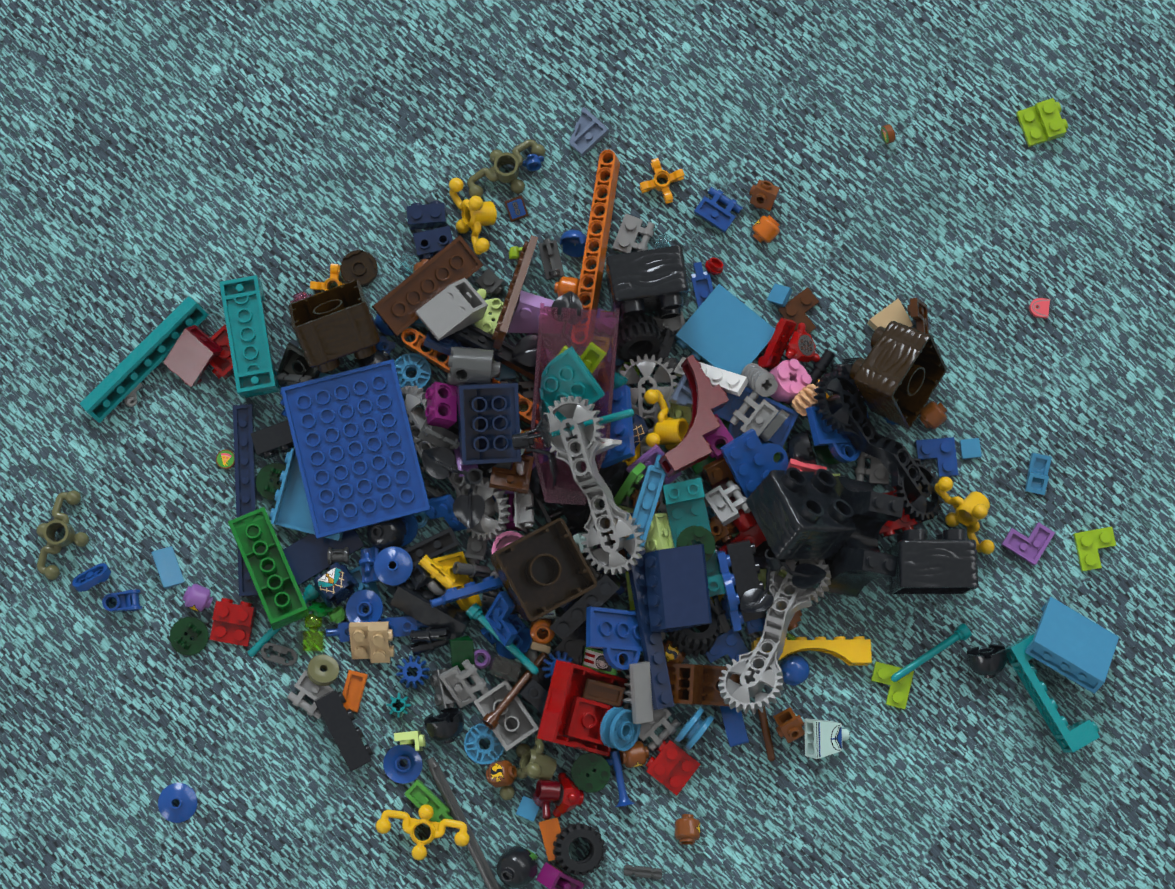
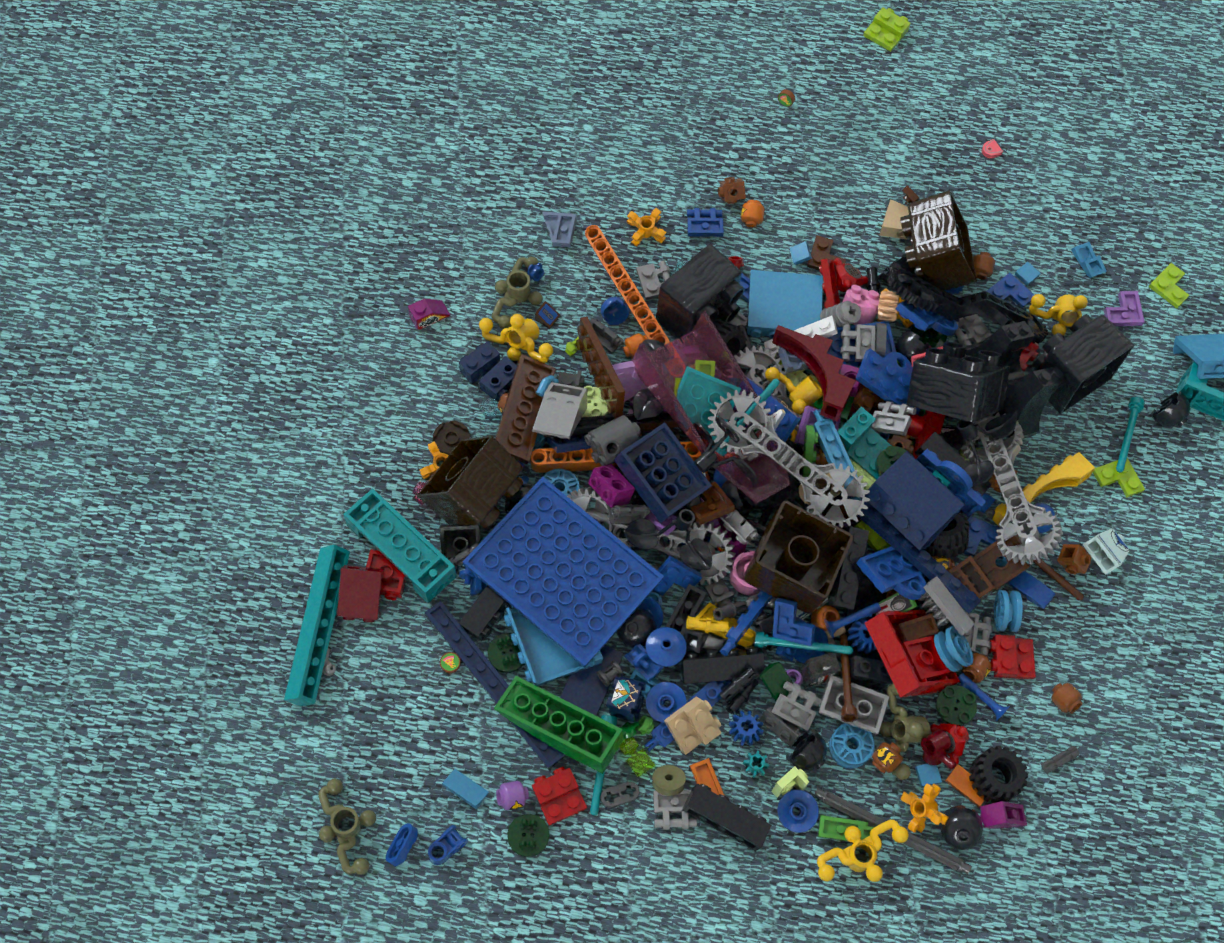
camera: 40 degrees left, 15 degrees down
(417, 140) = (427, 312): none -> magenta slope
(460, 275) = (544, 384): none -> dark azure arm
(499, 832) = (924, 808): none -> light orange pin
(570, 650) = (867, 613): none -> blue piece

